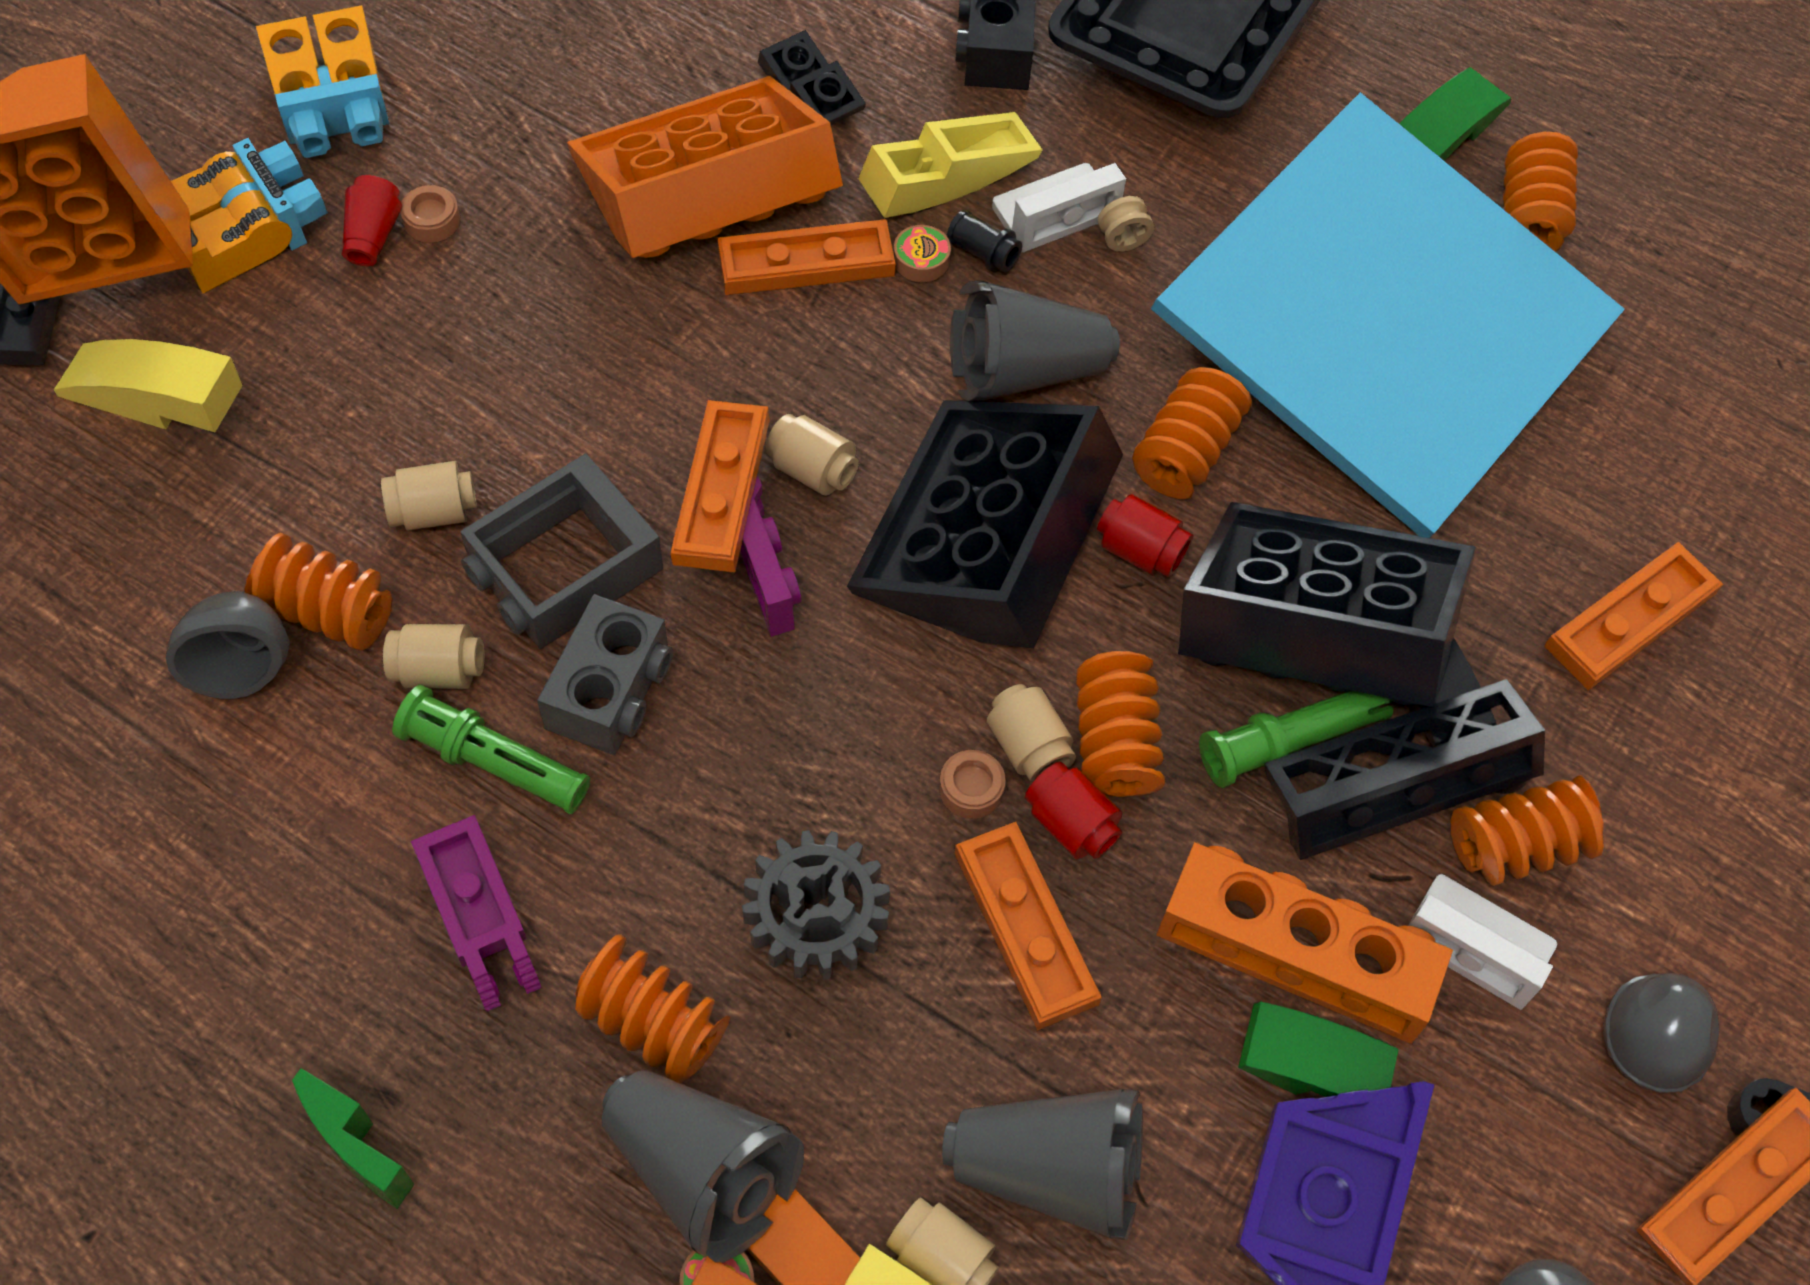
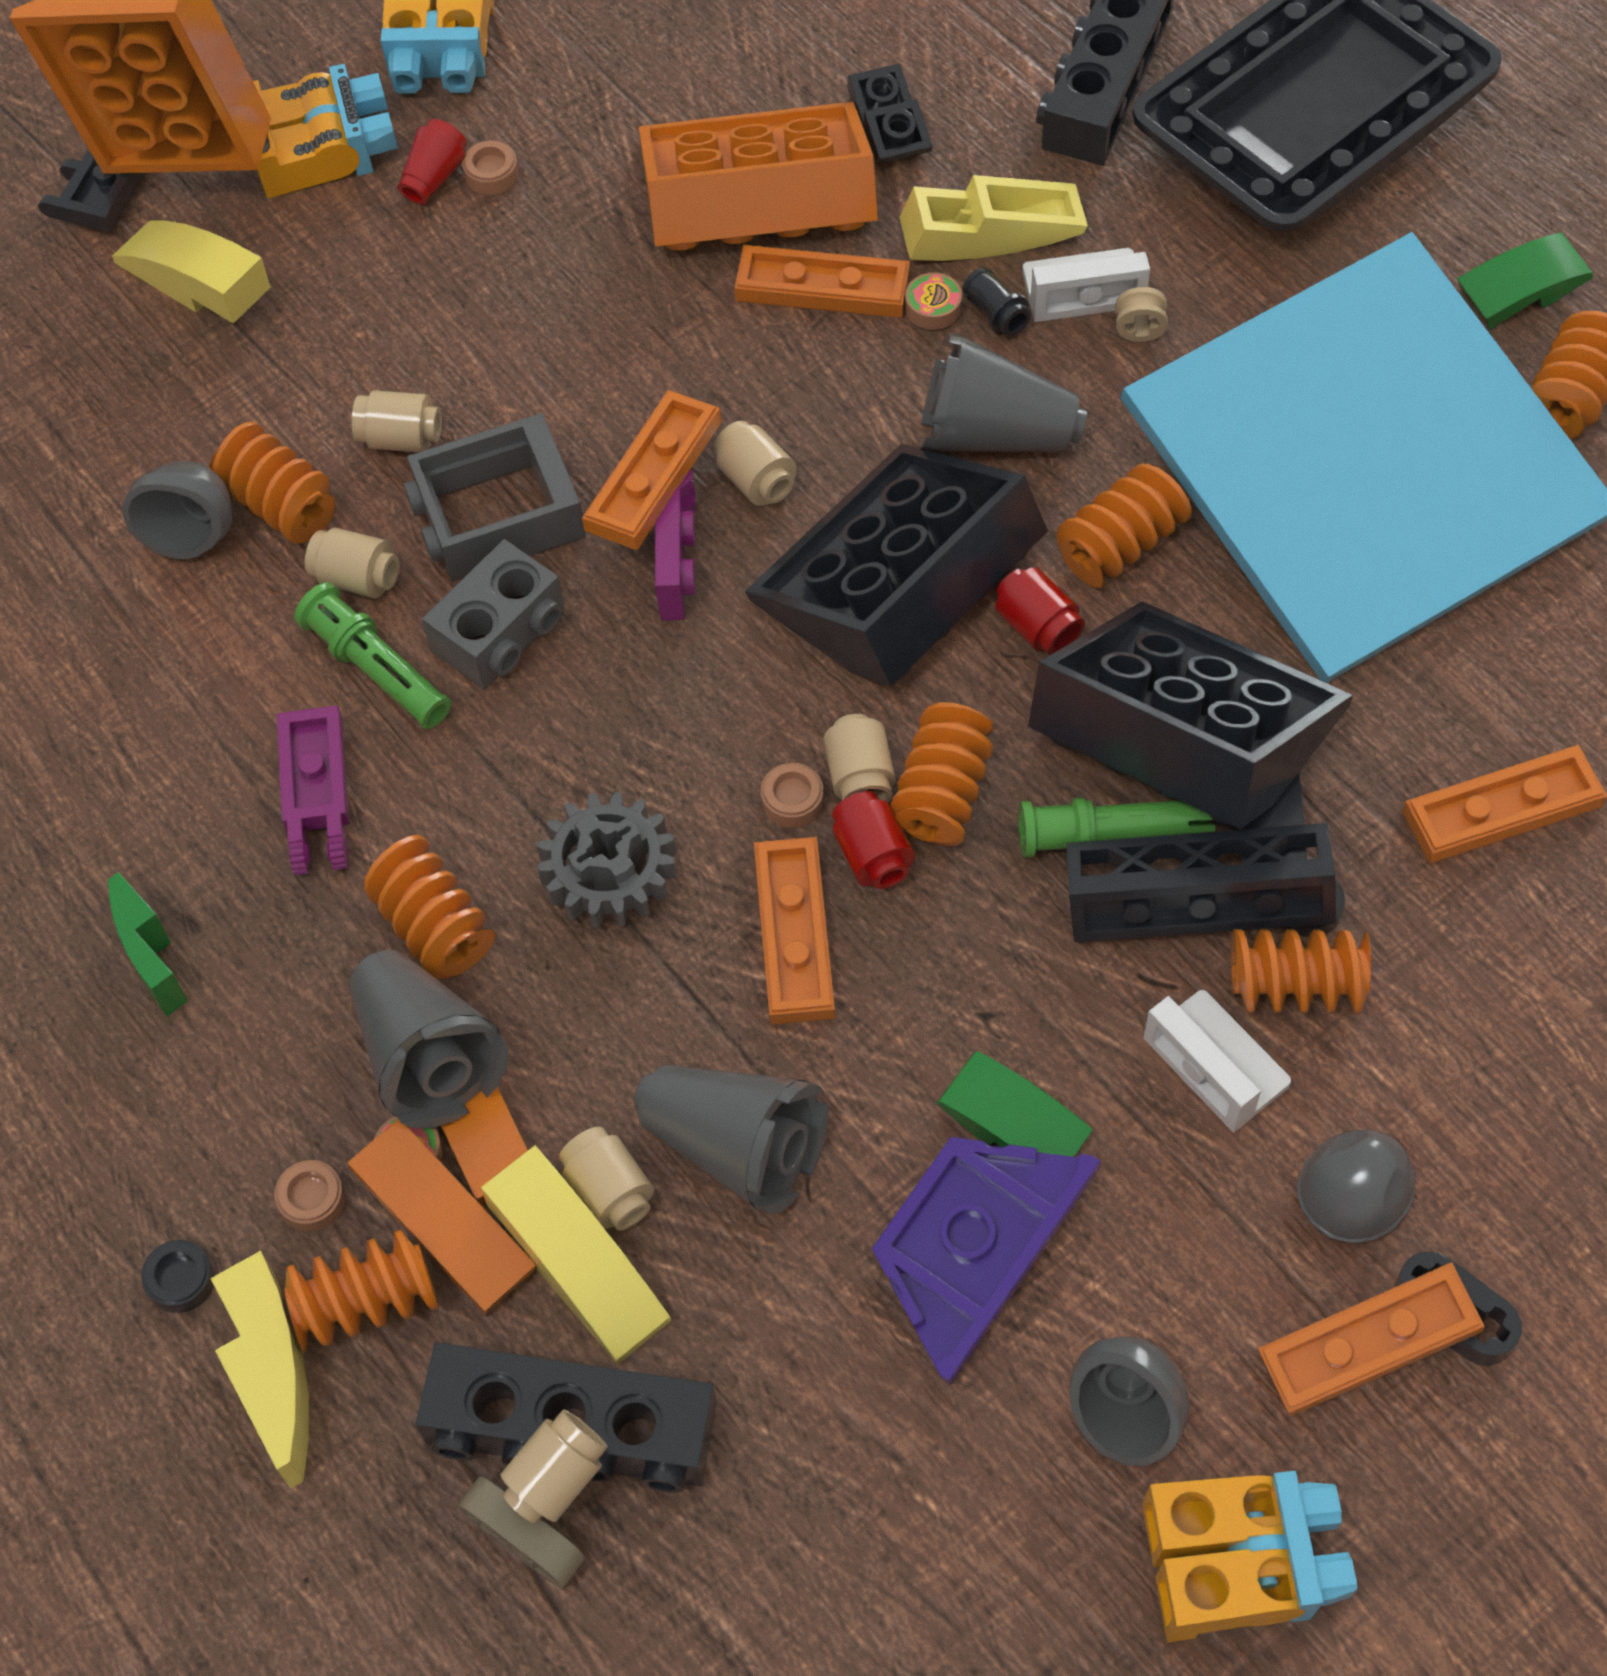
camera: 25 degrees right, 0 degrees up
(1325, 974) = (1102, 1084): orange brick -> none

